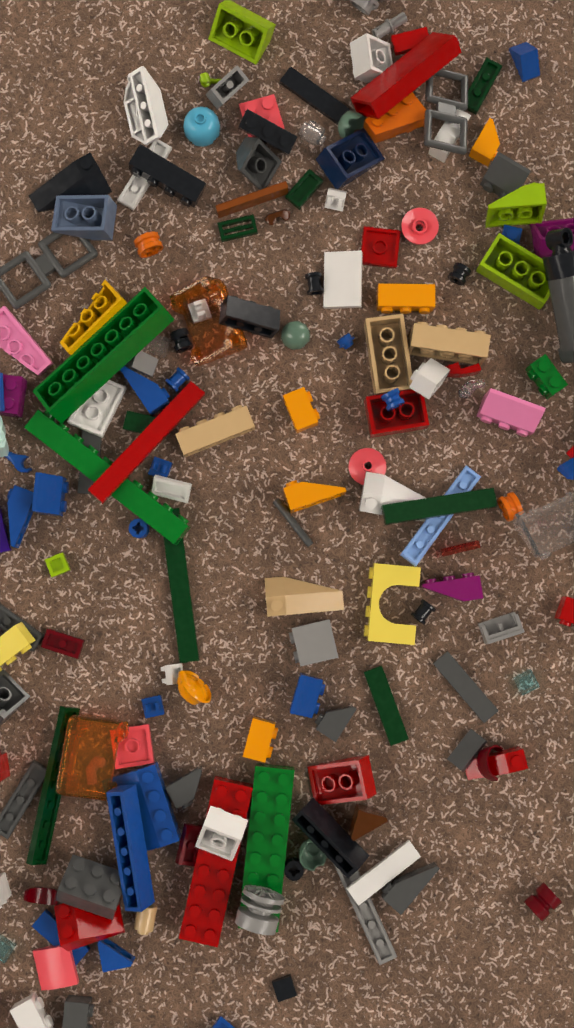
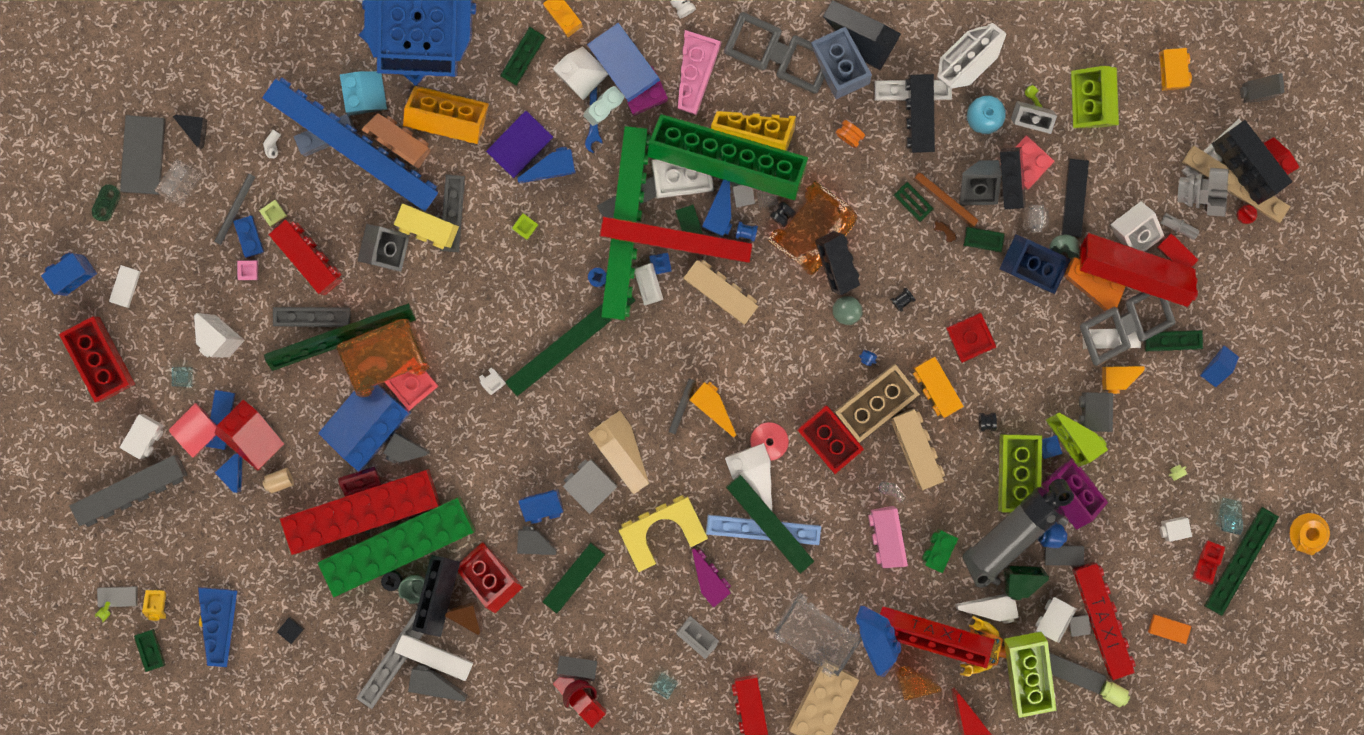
camera: 60 degrees right, 5 degrees up
(41, 896) = (244, 384): dark red helmet -> none
(49, 494) = (580, 184): blue slope -> none
(62, 643) = (461, 272): dark red plate -> none
(90, 887) = (277, 421): dark grey brick -> none
(130, 847) = (329, 434): blue brick -> none
(153, 706) = (454, 381): blue tile -> none
(193, 688) = (490, 406): light orange piece -> none
(199, 311) = (818, 214): white tile -> none
(221, 833) = (386, 503): white slope -> none
(259, 739) = (480, 488): light orange brick -> none
(259, 910) = (348, 570): light grey wheel -> none
(301, 410) = (784, 354): light orange brick -> none
(335, 199) = (990, 273): white tile -> none
(342, 279) = (921, 322): white tile -> none
(392, 399) = (836, 430): blue wheel -> none
(423, 218) = (1019, 364): coral dish -> none
(423, 611) = (671, 563): black bush -> none
(428, 378) = (875, 450): white brick -> none
(457, 372) = (898, 467): red slope -> none
(458, 549) = (742, 561): clear red tile -> none
(465, 687) = (629, 636): dark grey tile -> none
(510, 505) = (807, 584): orange wheel -> none

